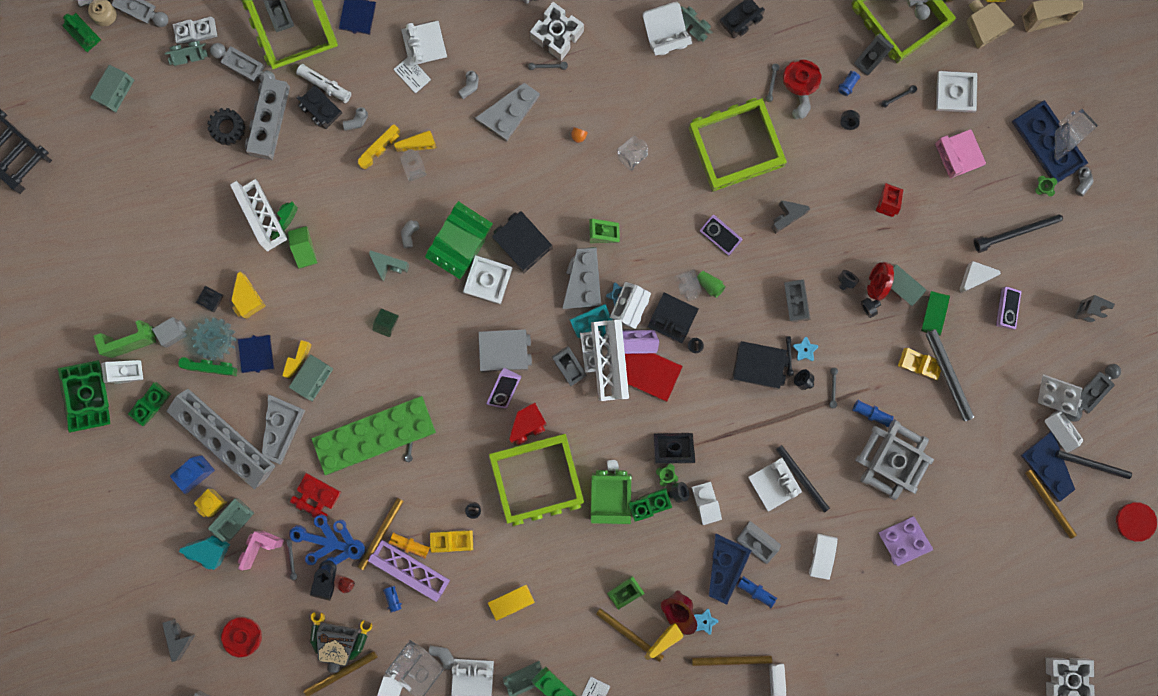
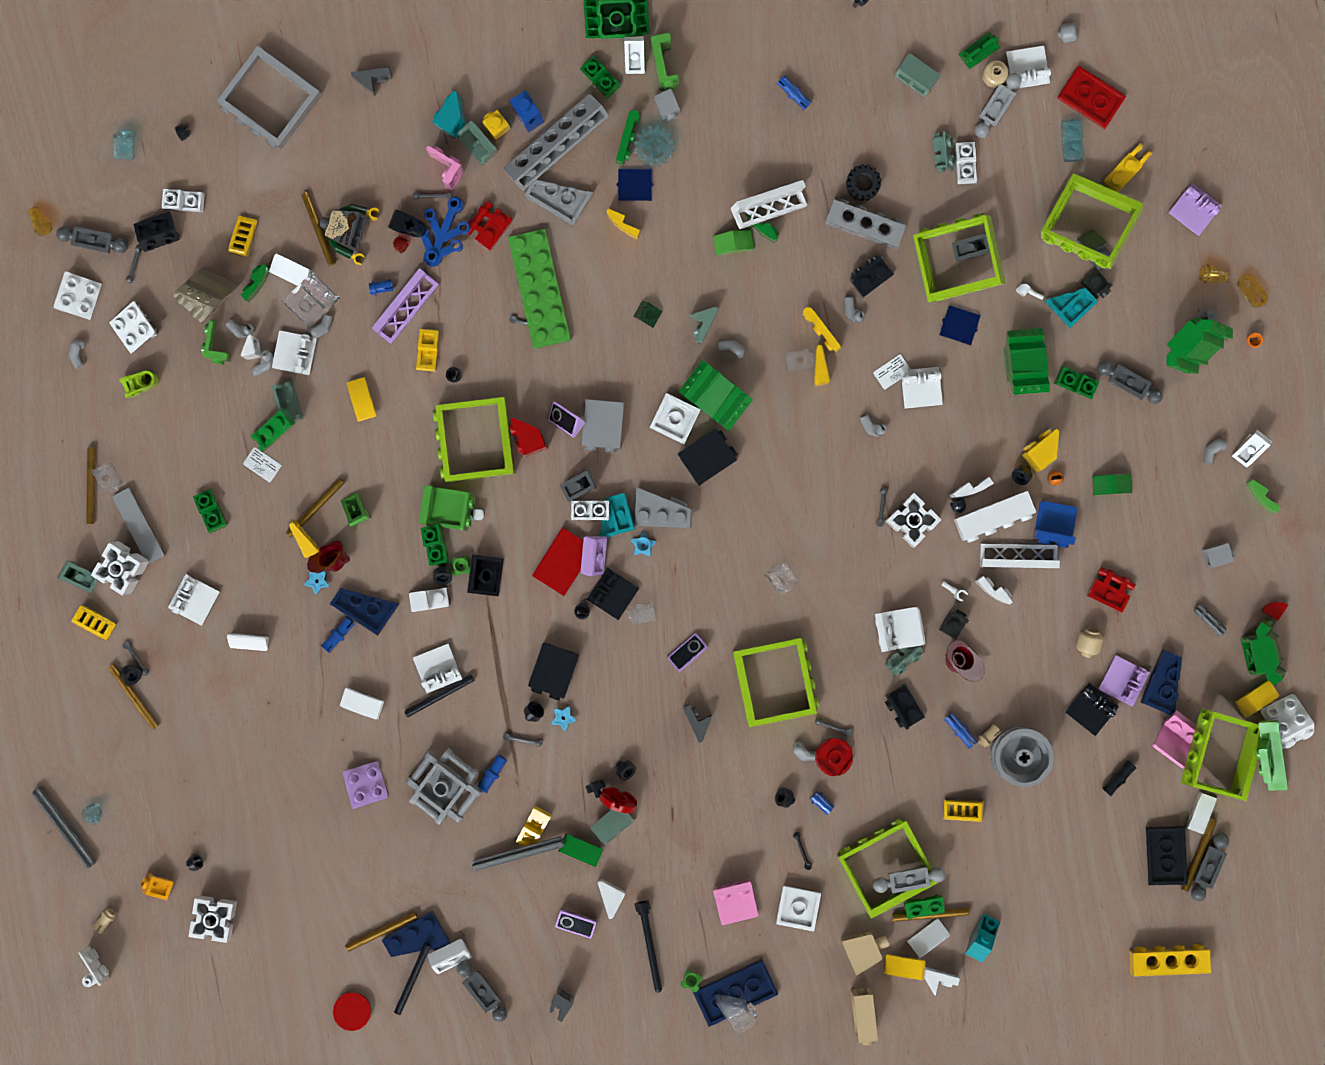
camera: 100 degrees right, 5 degrees up
(143, 207) = (794, 92): none -> blue pin
(209, 299) = (694, 146): black tile -> none
(240, 63) = (925, 204): light grey plate -> none
(241, 637) = (366, 139): red tile -> none
(245, 297) = (690, 181): yellow slope -> none
(311, 378) = (603, 235): sand green hinge -> none
(330, 87) = (892, 285): white pin -> none
(380, 534) = (444, 283): pearl gold bar -> none
(409, 545) = (429, 309): light orange pin -> none
(509, 111) = (840, 462): light grey wing -> none
(578, 135) = (807, 527): orange hinge -> none
(603, 231) = (706, 538): bright green slope -> none
(614, 360) = (577, 532): white fence -> none
(630, 305) = (629, 553): white brick -> none
(711, 284) = (640, 635): bright green cone -> none
(741, 660) = (277, 601): pearl gold bar -> none
(759, 542) = (385, 644): light grey slope -> none
(790, 372) = (543, 700): black hinge -> none
(797, 300) = (611, 717): dark grey hinge -> none
(873, 54) = (846, 831): dark grey slope -> none
(890, 200) = (698, 824): red slope -> none
(1060, 395) = (481, 956): white hinge -> none
(1086, 181) = (691, 1021): light grey arm -> none

